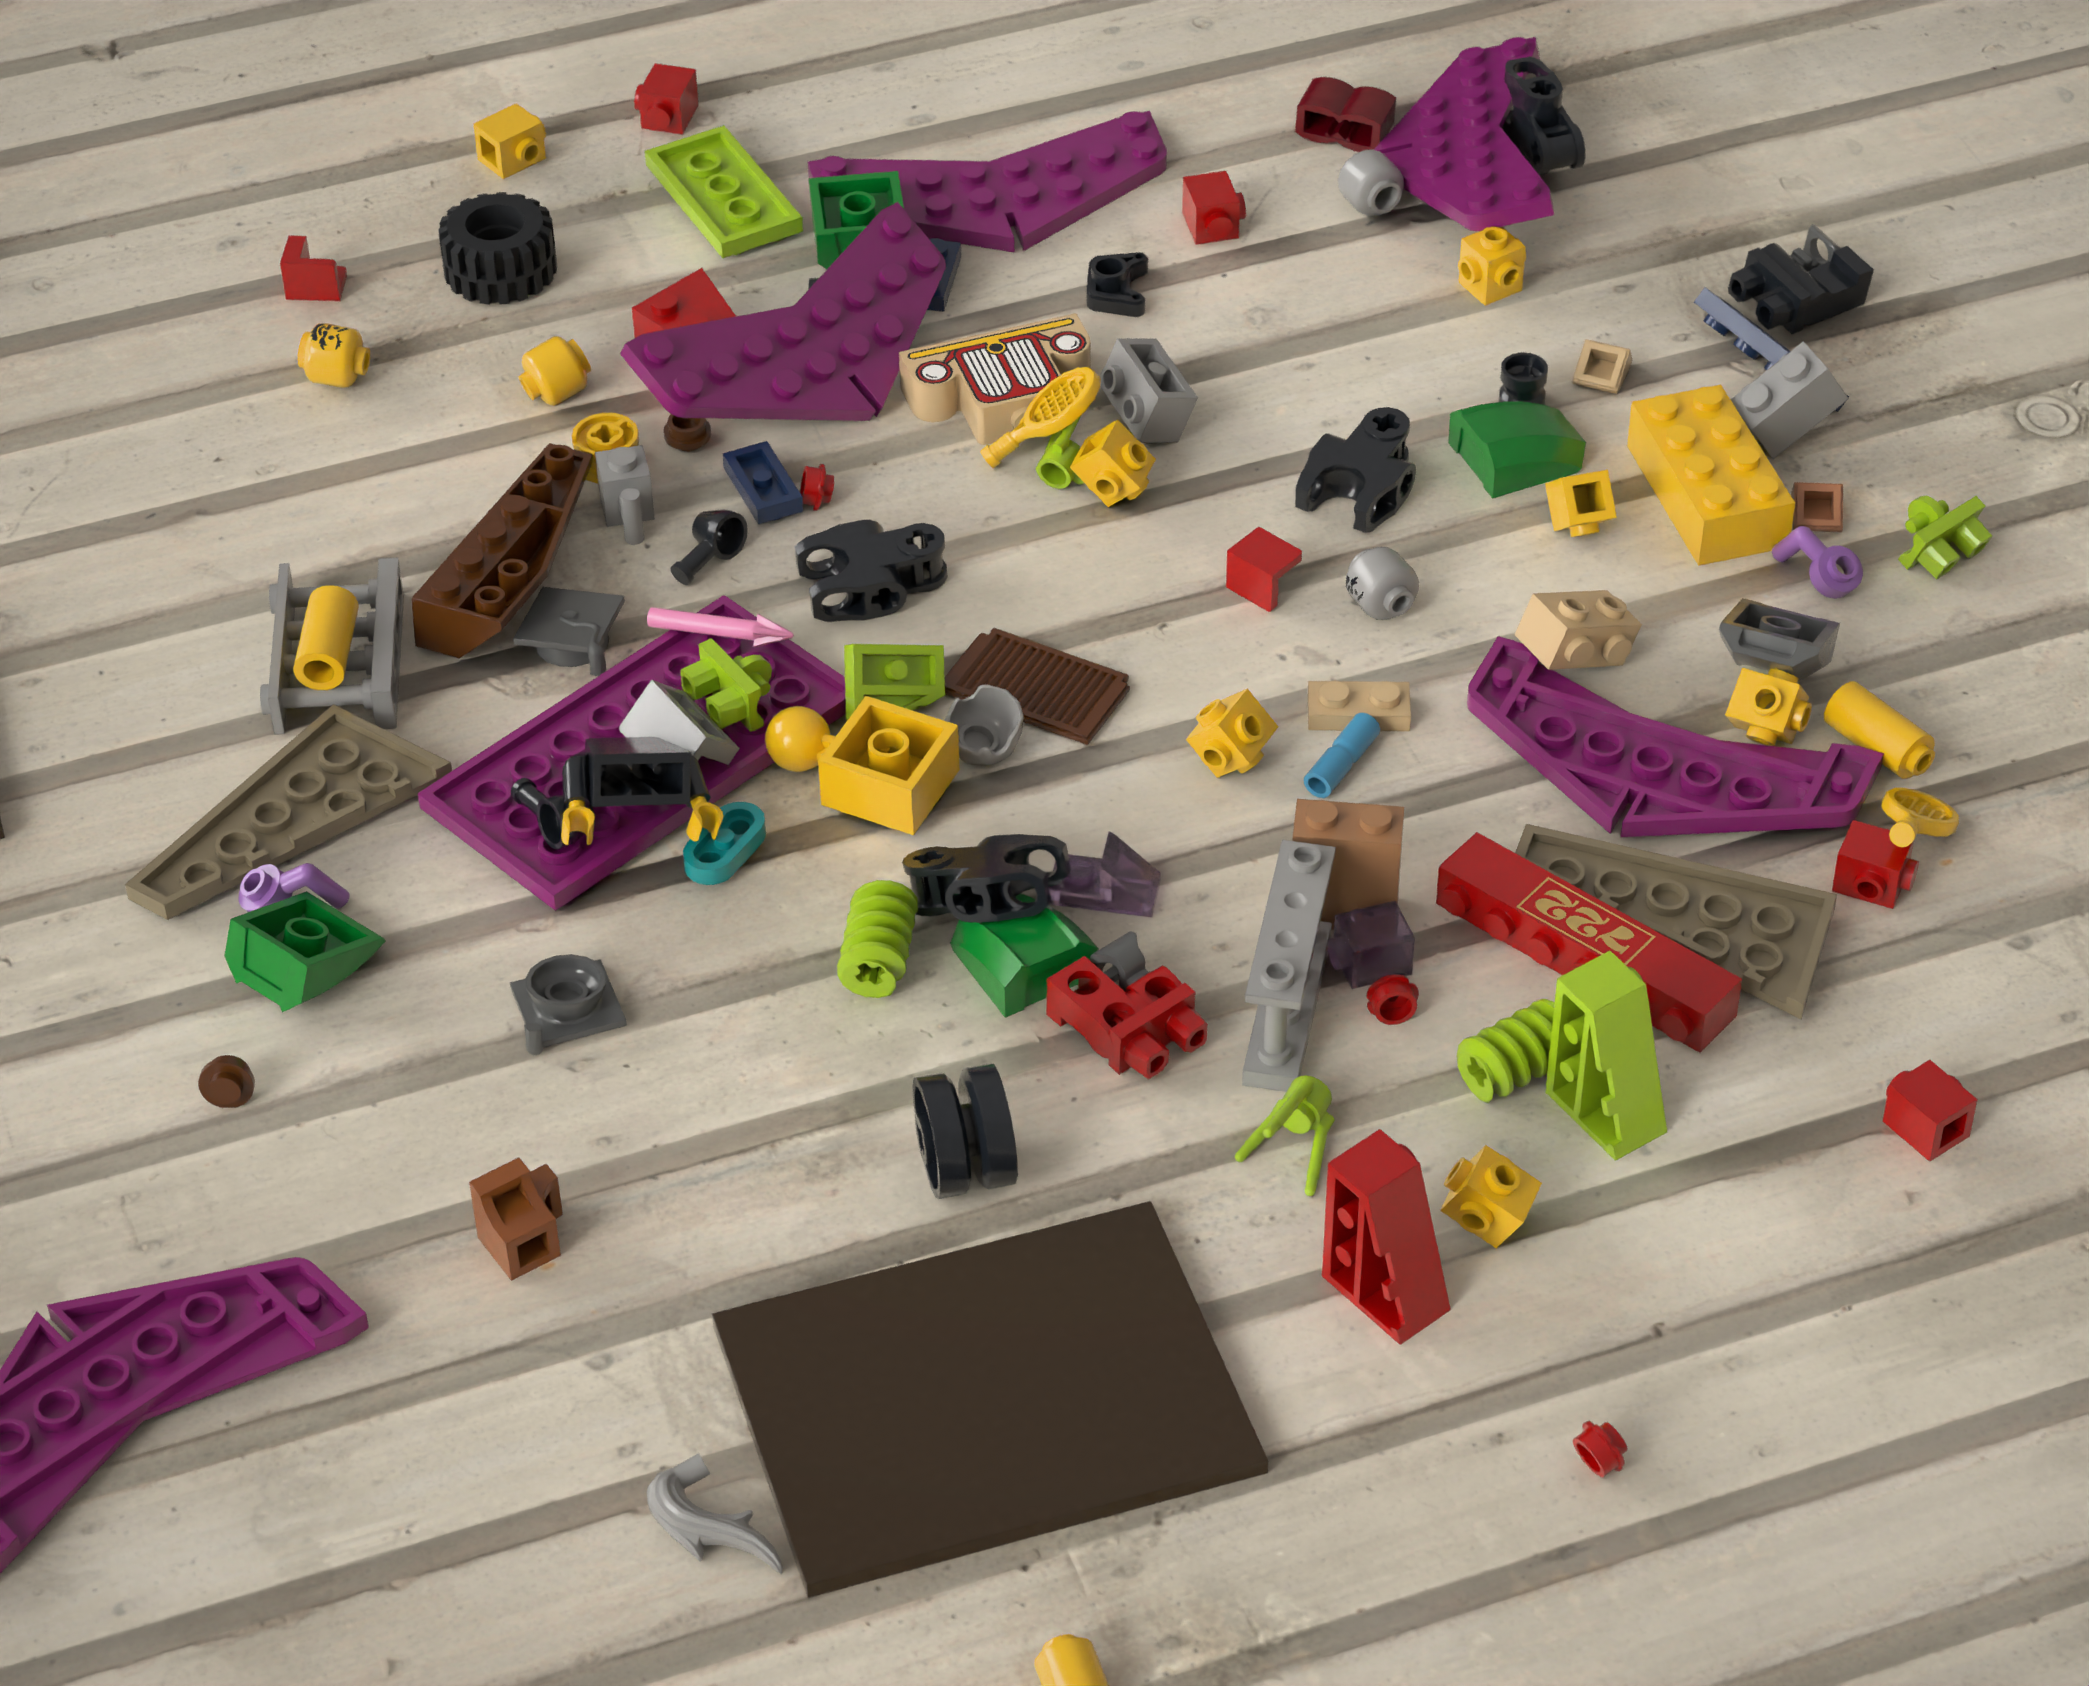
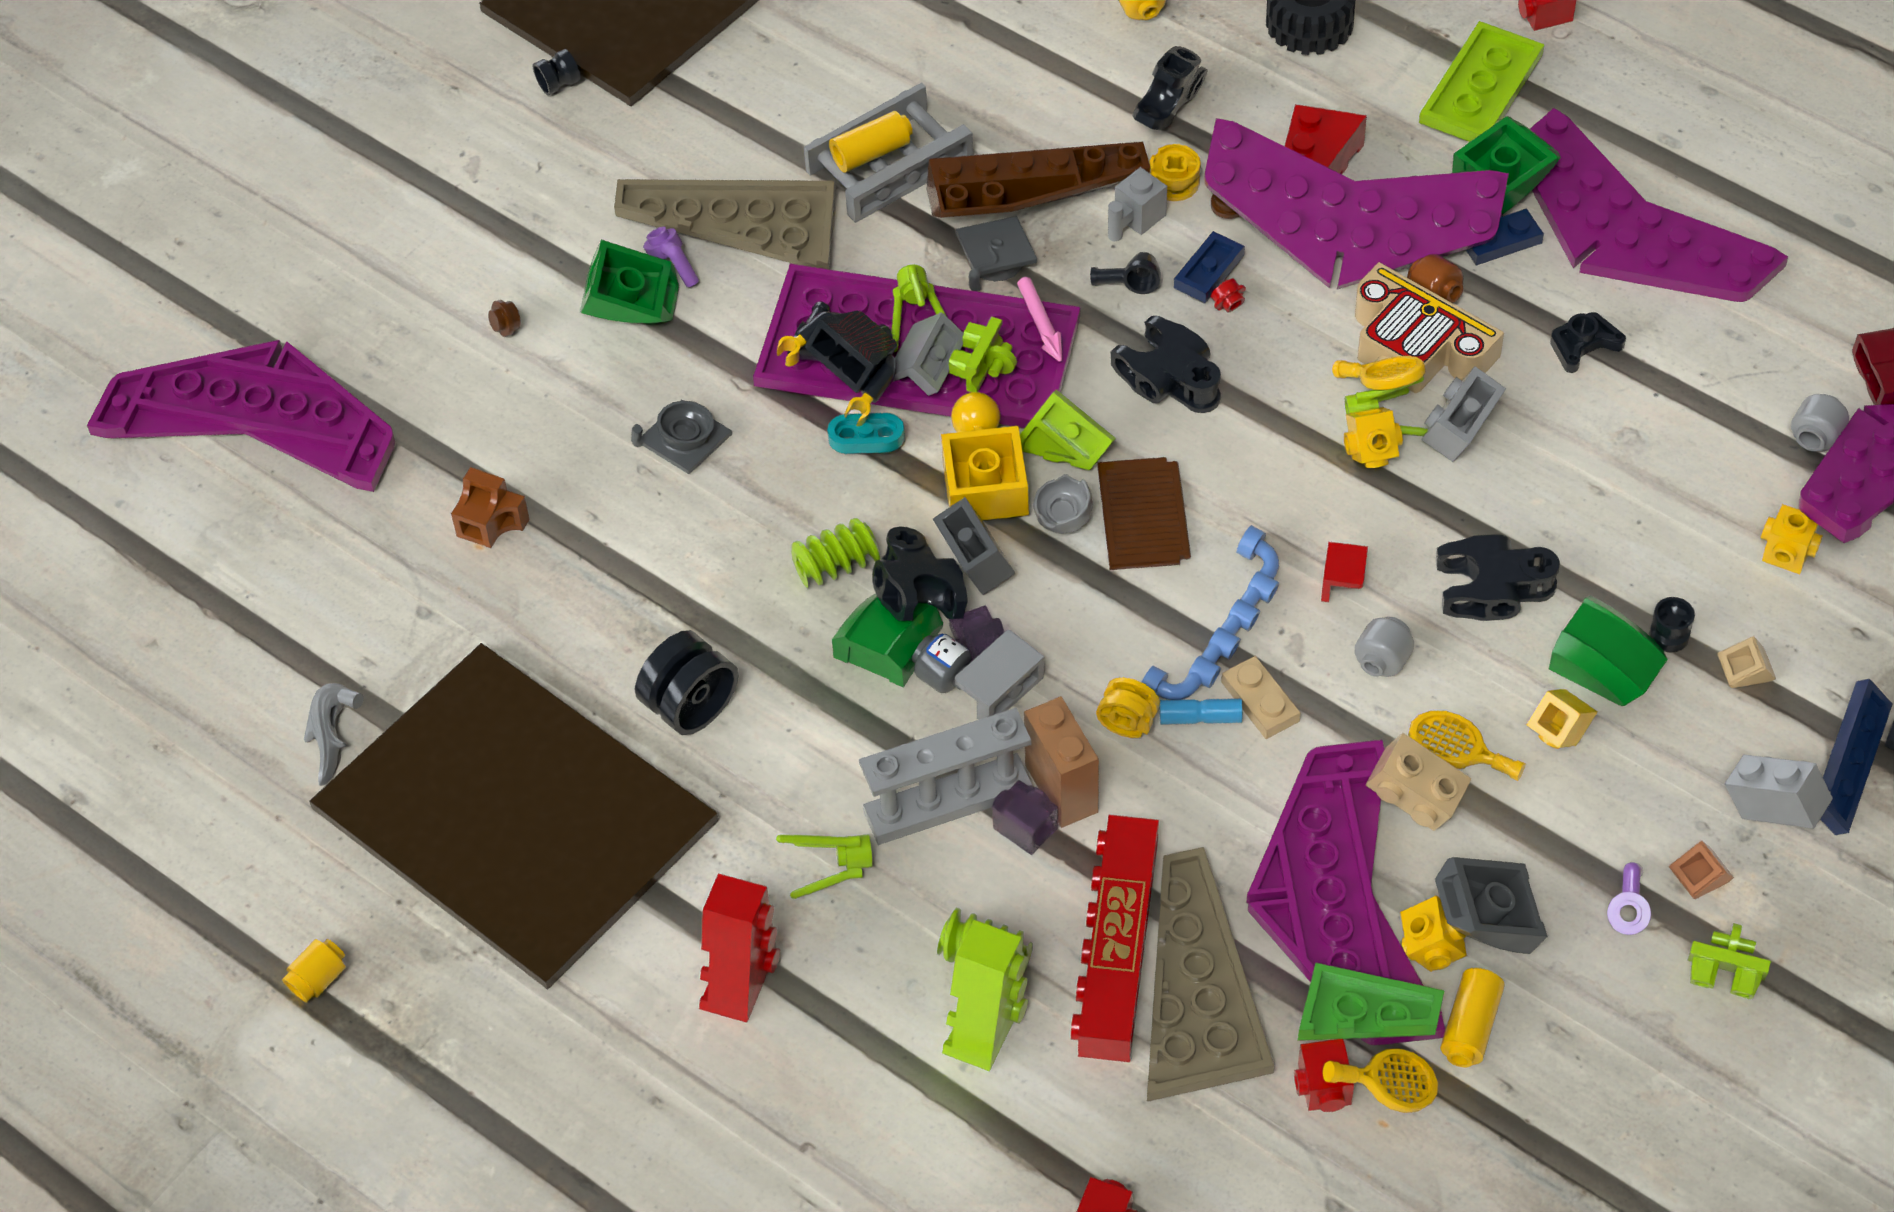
camera: 60 degrees right, 10 degrees up
(502, 382) = (1174, 83): none -> black piece
(554, 370) = (1222, 101): yellow head -> none
(572, 698) = (914, 289): none -> lime plant
(949, 324) = (1438, 276): none -> dark orange head
(970, 810) = (973, 546): none -> dark grey brick
(1113, 910) = (939, 661): none -> dark grey head
(1129, 1020) = (861, 722): red hips -> none
(1175, 875) = (1001, 674): none -> light grey panel
(1212, 207) = (1707, 347): red brick -> none
(1223, 737) = (1170, 645): yellow brick -> none
(1277, 768) = (1242, 615): none -> medium blue bar
(1295, 783) = (1128, 707): none -> yellow wheel
(1392, 999) = (987, 853): red plate -> none
(1489, 1195) = (834, 1007): yellow brick -> none
(1599, 571) = (1477, 755): none -> yellow piece
(1601, 1448) = (667, 1159): red plate -> none
(1710, 474) = (1665, 784): yellow brick -> none
(1827, 785) = (1366, 1006): none -> bright green wing

